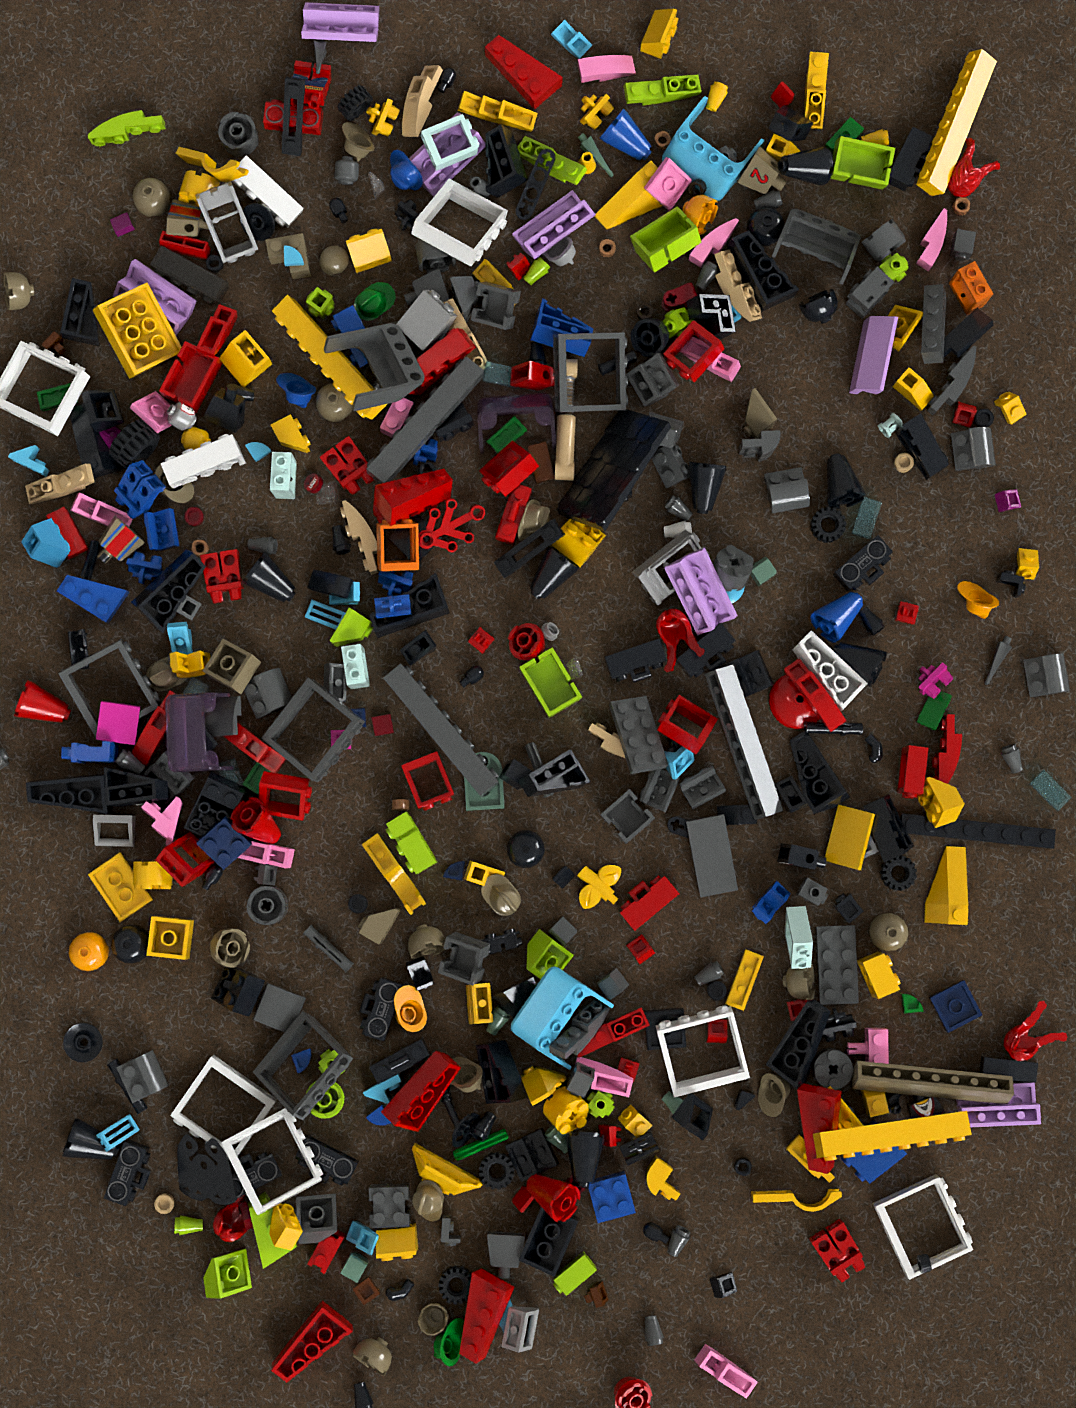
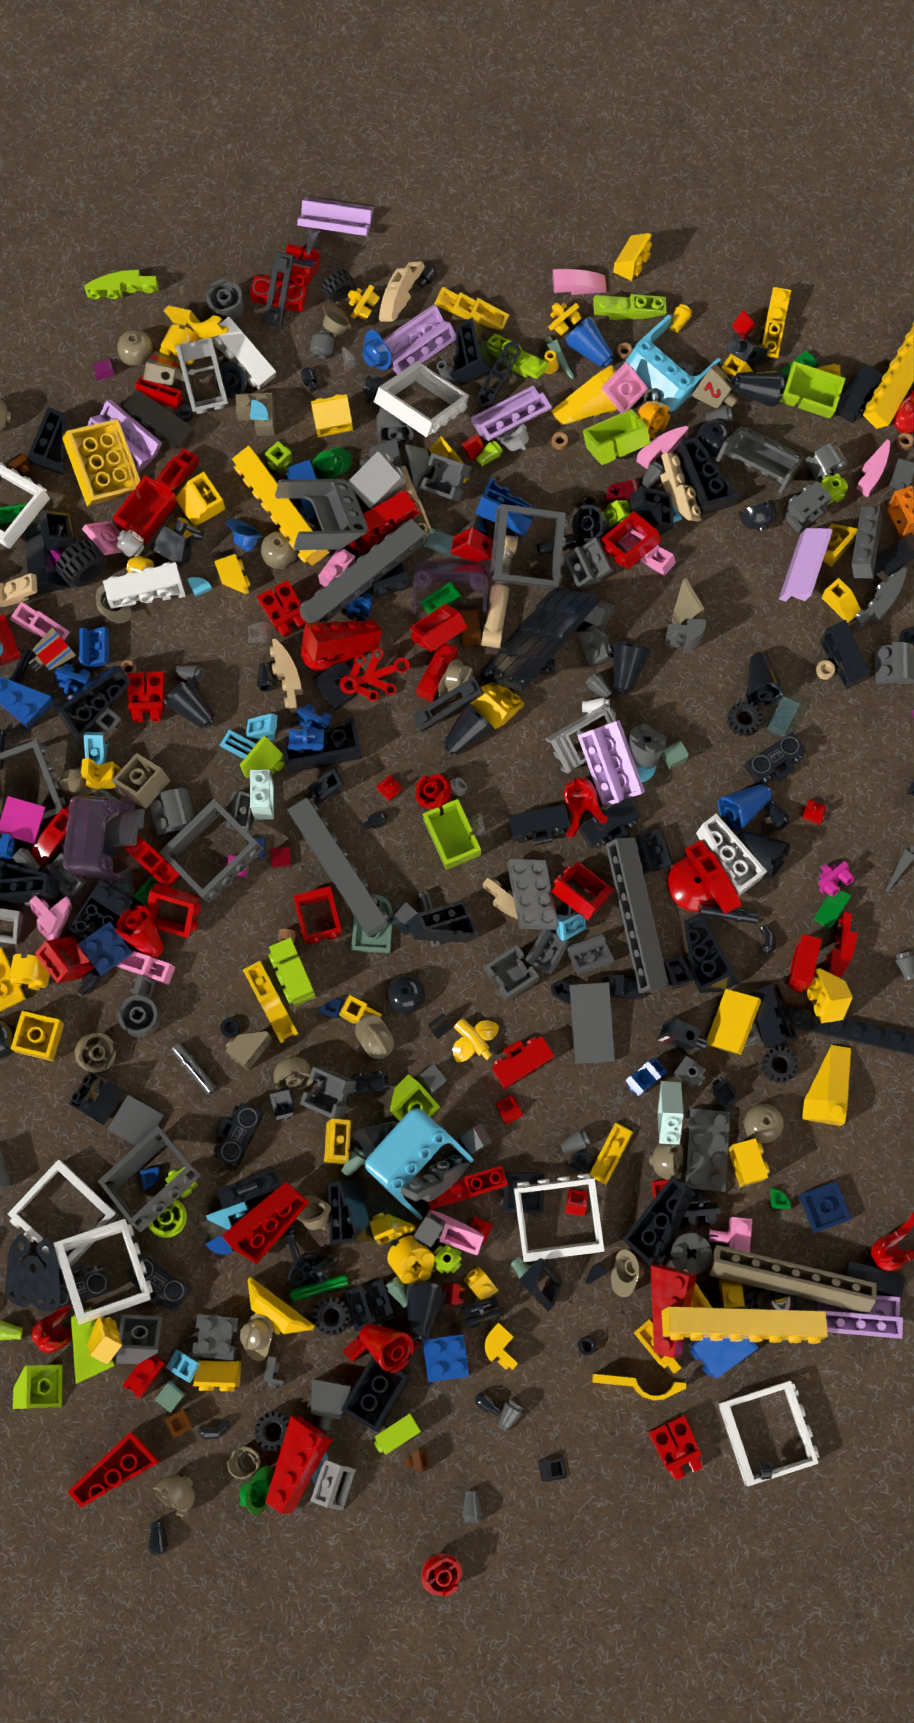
camera: 10 degrees right, 10 degrees down
(138, 489) = (78, 604): blue hips -> none
(194, 516) = (127, 639): dark red tile -> none
(246, 1215) = (67, 1327): dark red tile -> none
(282, 468) = (219, 602): light aqua window -> none
(313, 483) = (247, 621): dark red tile -> none
(330, 584) = (249, 714): black beam -> none
(333, 260) = (297, 422): dark tan hair -> none
(409, 1009) = (266, 1137): light orange piece -> none
(413, 563) = (314, 704): orange window -> none
(433, 153) = (424, 342): light aqua window -> none
(523, 71) = (500, 276): red wedge -> none
(571, 40) = (550, 256): medium azure slope -> none
(725, 1371) = (543, 1561): bright pink slope -> none
(787, 490) = (707, 681): dark grey brick -> none
(886, 430) = (811, 634): light aqua bush -> none
(964, 414) = (889, 632): red slope -> none
(977, 599) = (885, 806): light orange piece -> none

